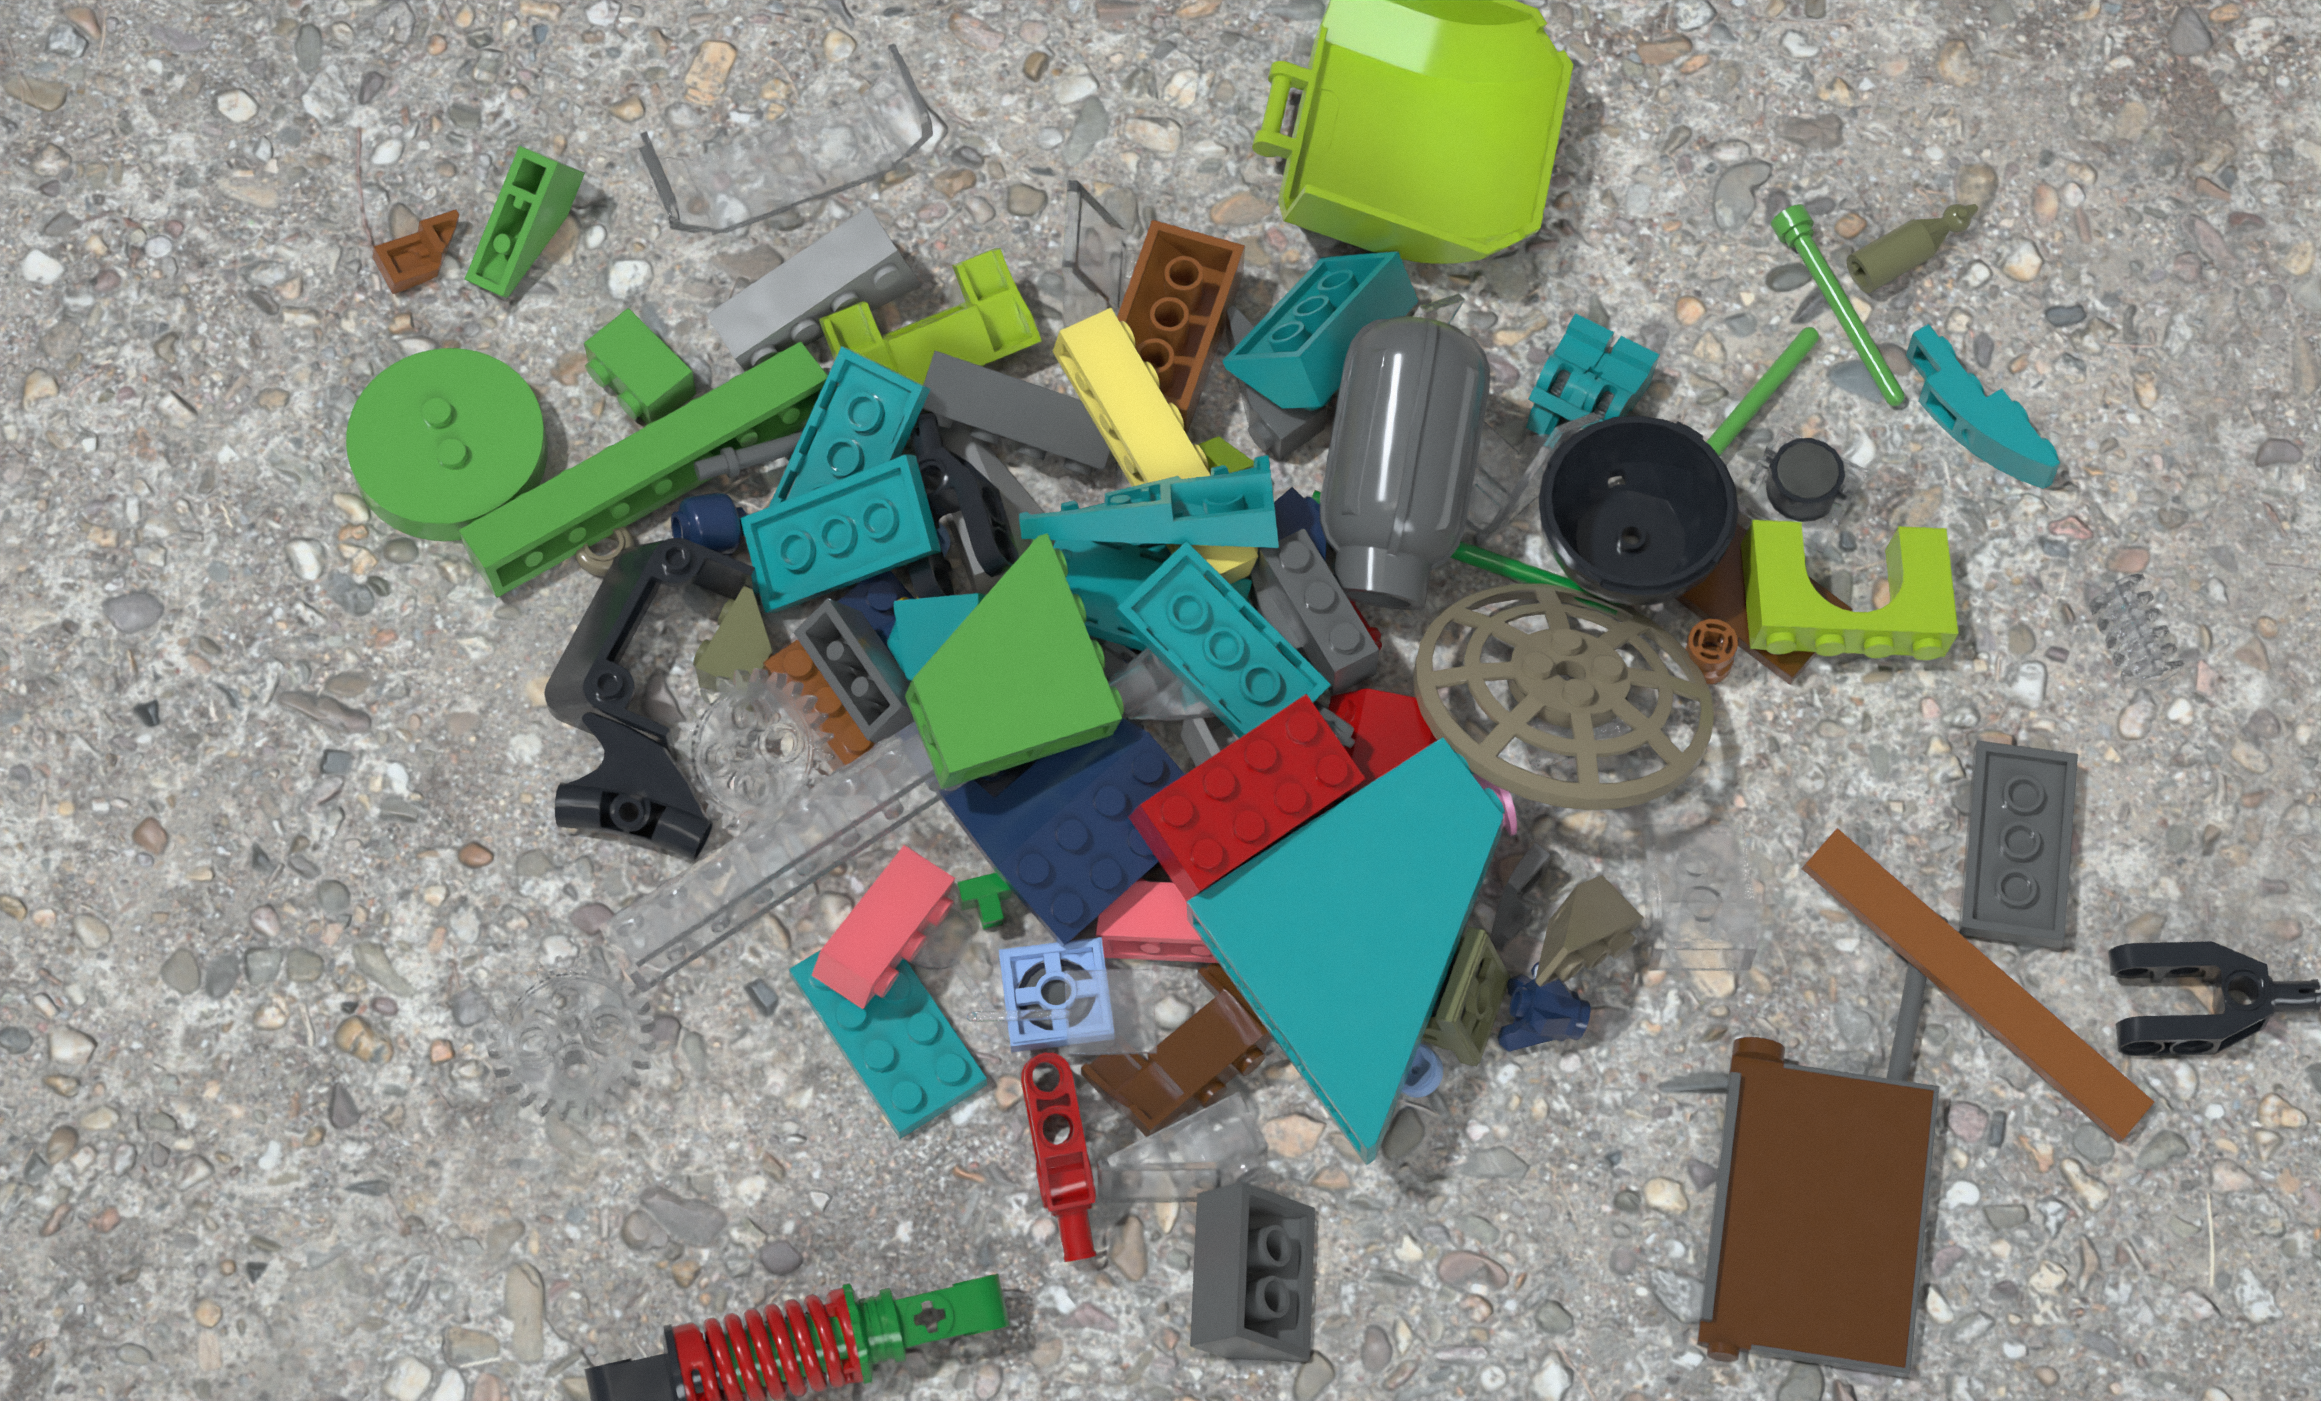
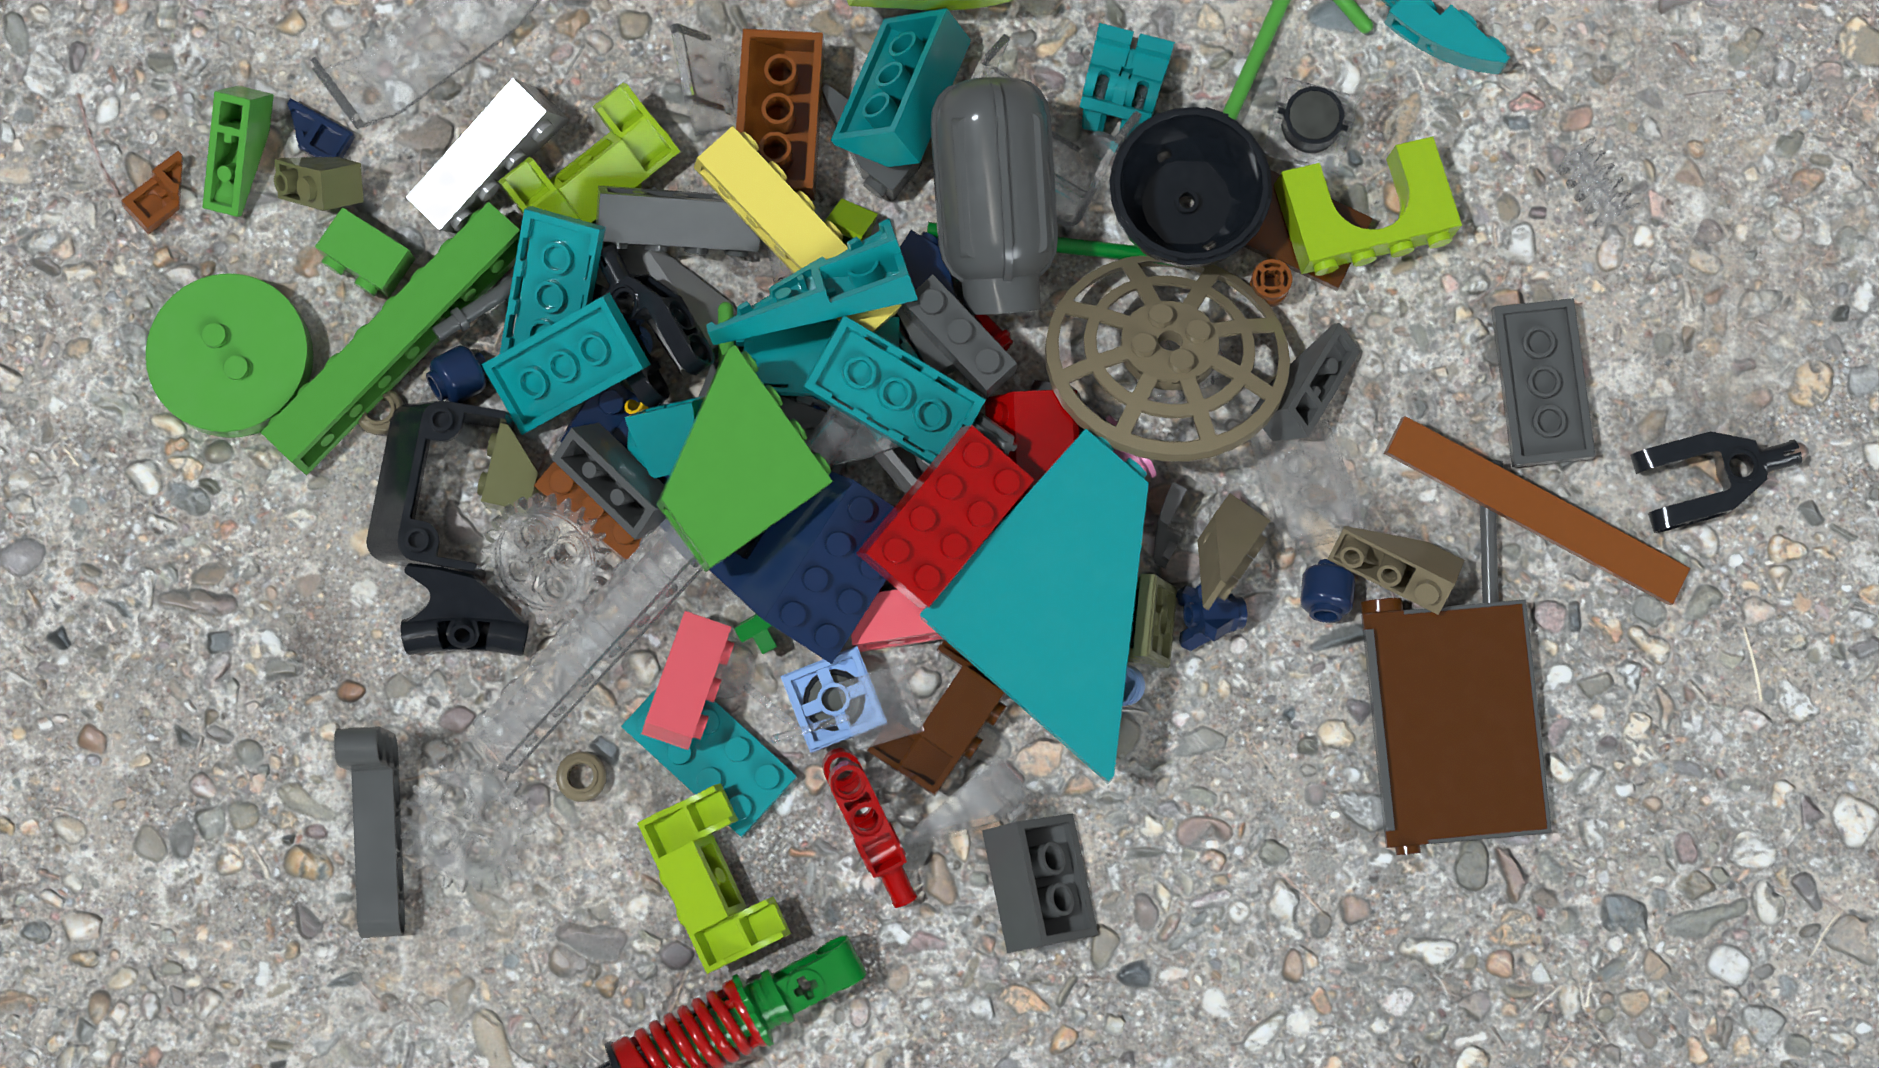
camera: 10 degrees left, 15 degrees up
(480, 933) = (379, 878): none -> dark grey beam
(609, 277) = (319, 181): none -> olive slope
(624, 233) = (317, 134): none -> dark blue tile
(729, 1036) = (581, 794): none -> dark tan piece
(837, 1171) = (702, 883): none -> lime bracket
(1695, 1018) = (1327, 591): none -> dark blue head
(1730, 776) = (1311, 384): none -> dark grey slope
(1790, 1004) = (1399, 565): none -> dark tan slope

